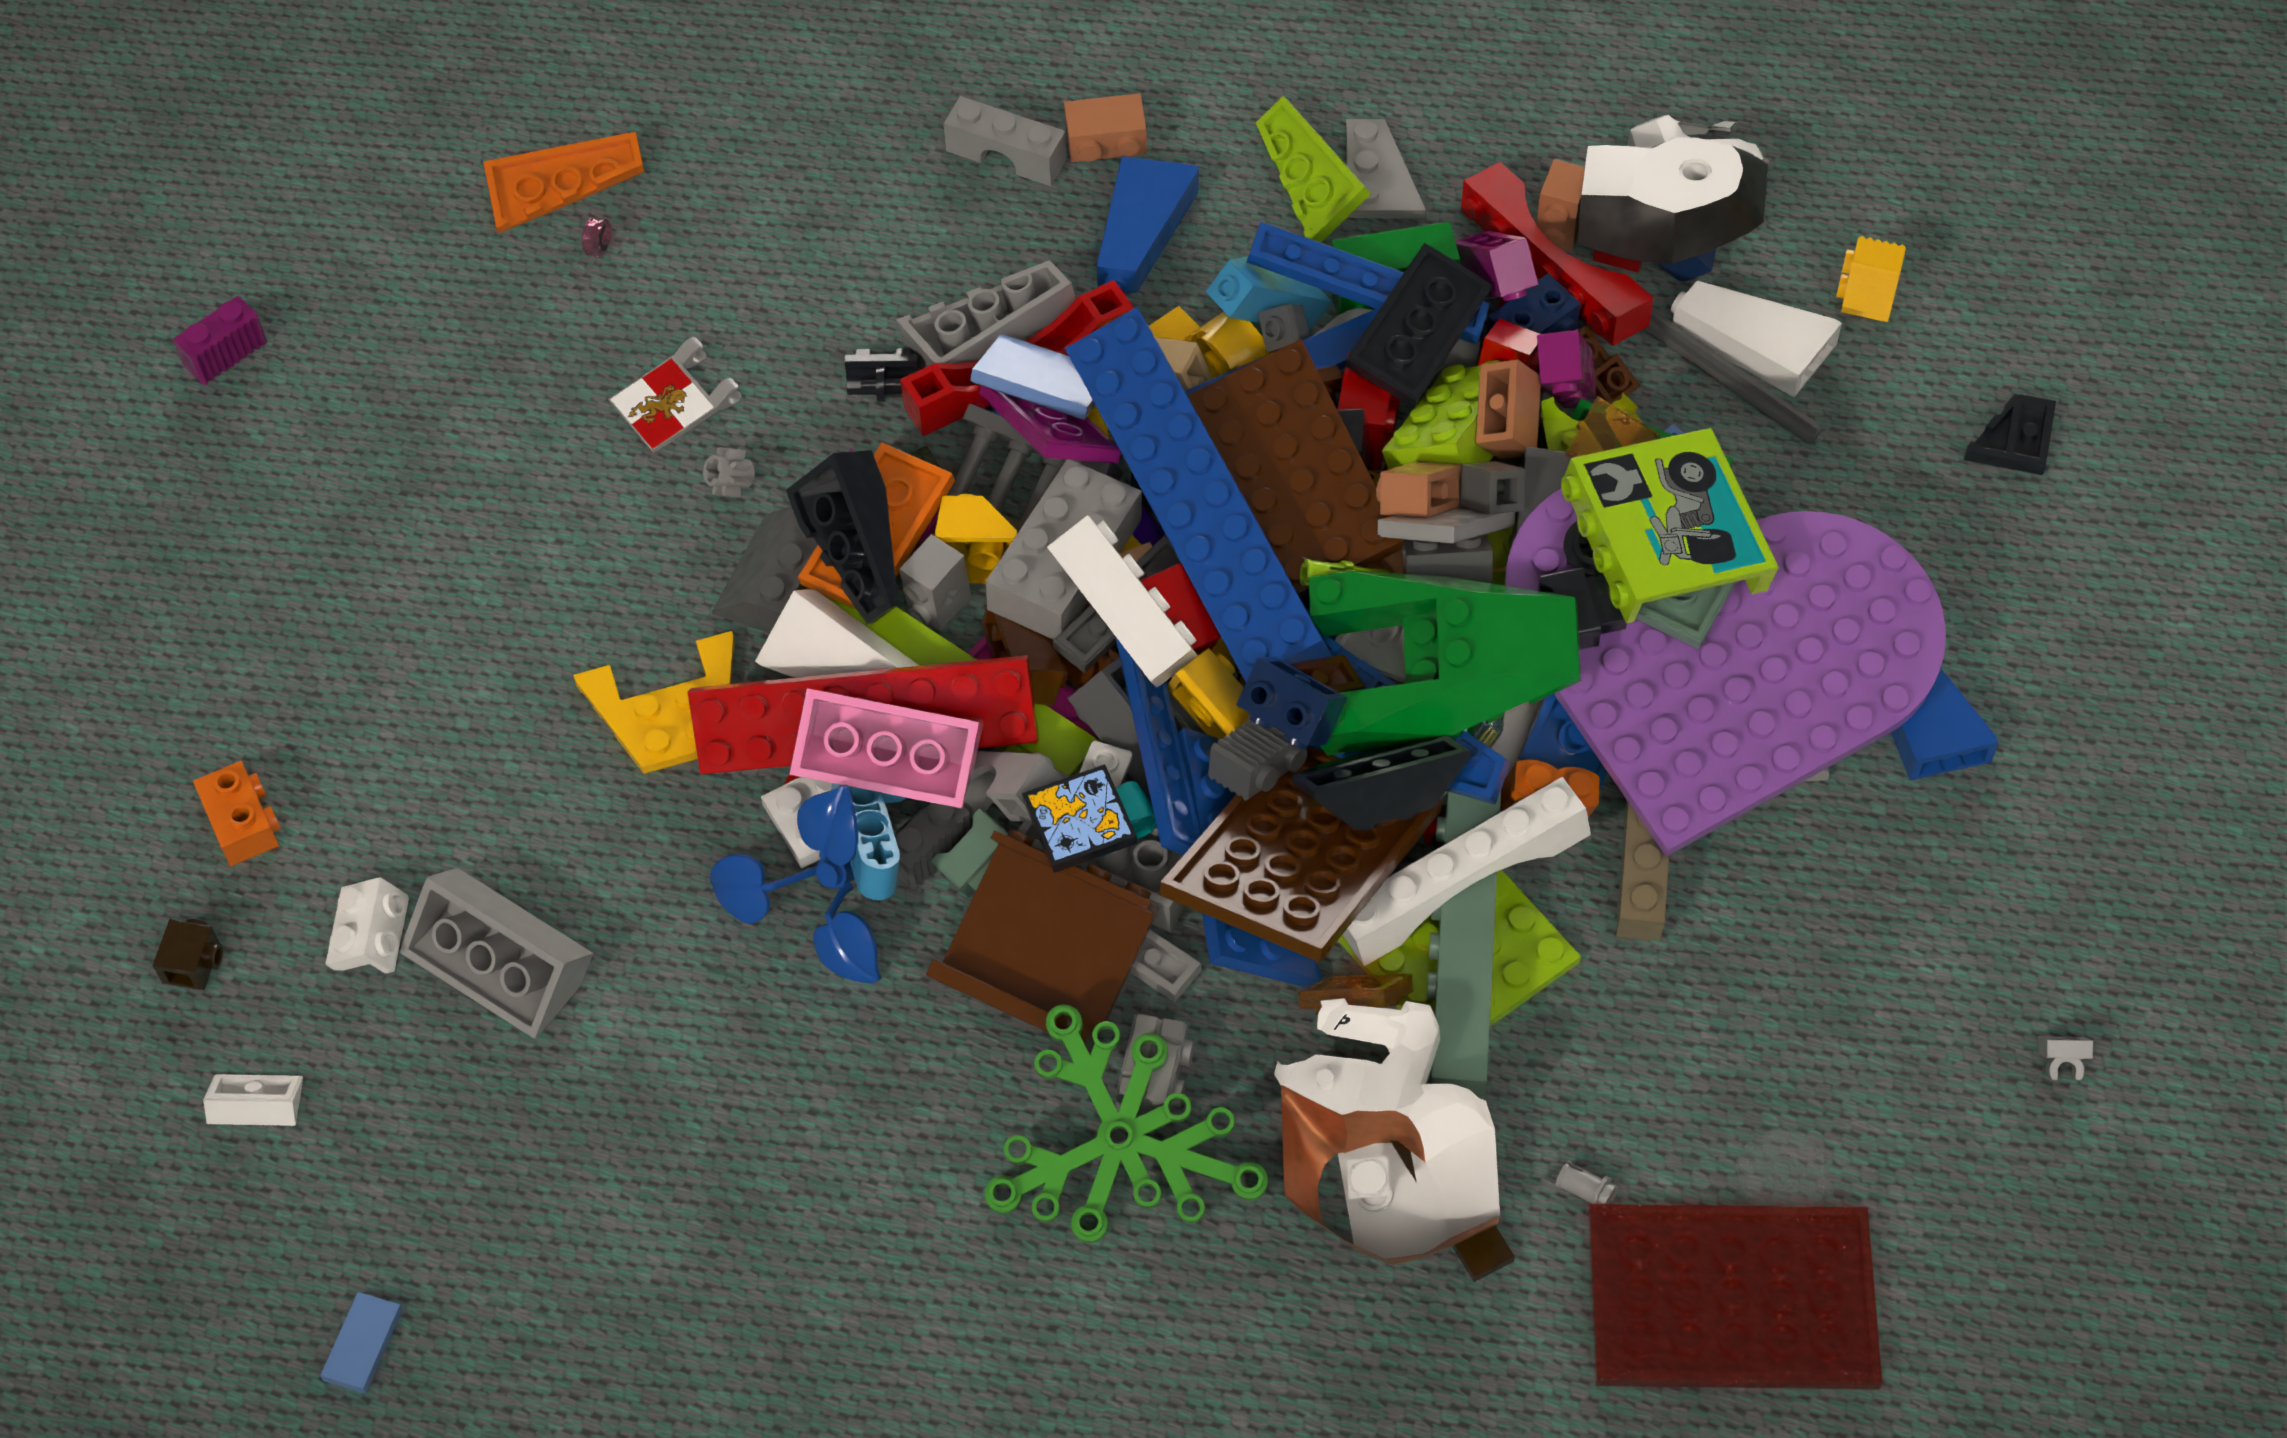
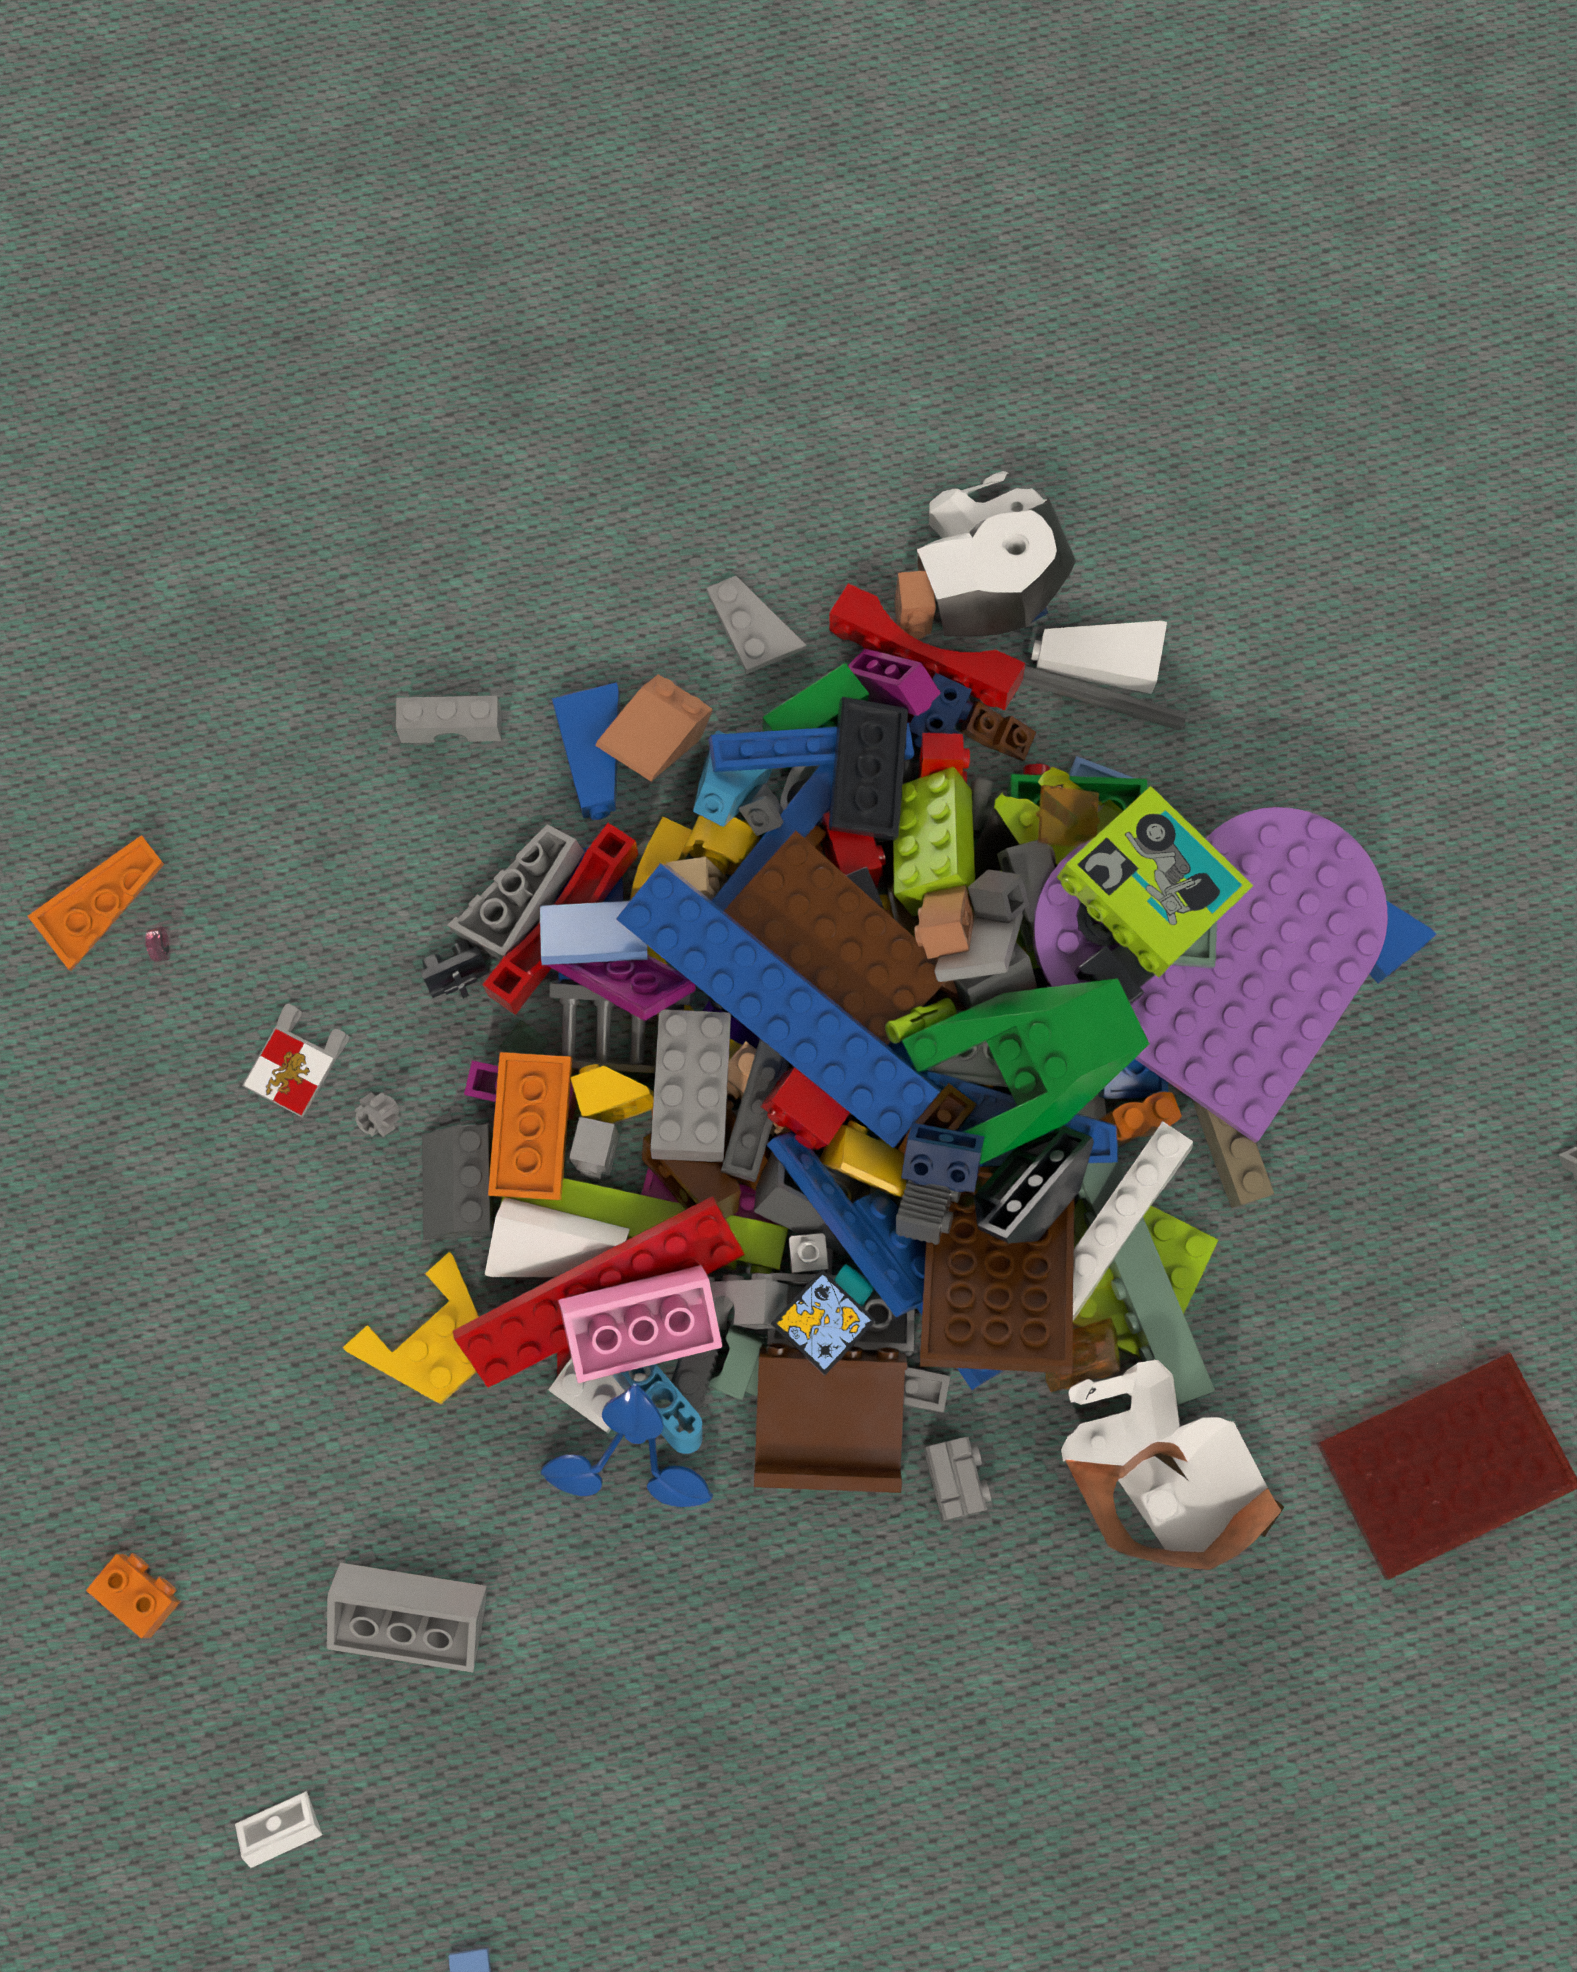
camera: 30 degrees left, 15 degrees up
(188, 954) = (160, 1735): dark brown brick -> none
(367, 926) = (292, 1642): white bracket -> none
(848, 516) = (513, 1136): black wedge -> none
(1105, 127) = (524, 675): nougat brick -> none
(1123, 601) = (771, 1125): white brick -> none
(1170, 1153) = (1008, 1548): bright green plant -> none
(1212, 217) = (655, 728): none -> nougat slope
(1311, 172) = (708, 651): lime wing -> none
(1508, 408) = (975, 819): nougat brick -> none
(1566, 367) = (994, 757): magenta brick -> none
(1586, 1184) = (1308, 1425): light grey pin -> none
(1871, 278) = (1172, 574): yellow brick -> none
(2016, 436) = (1328, 661): black wing -> none

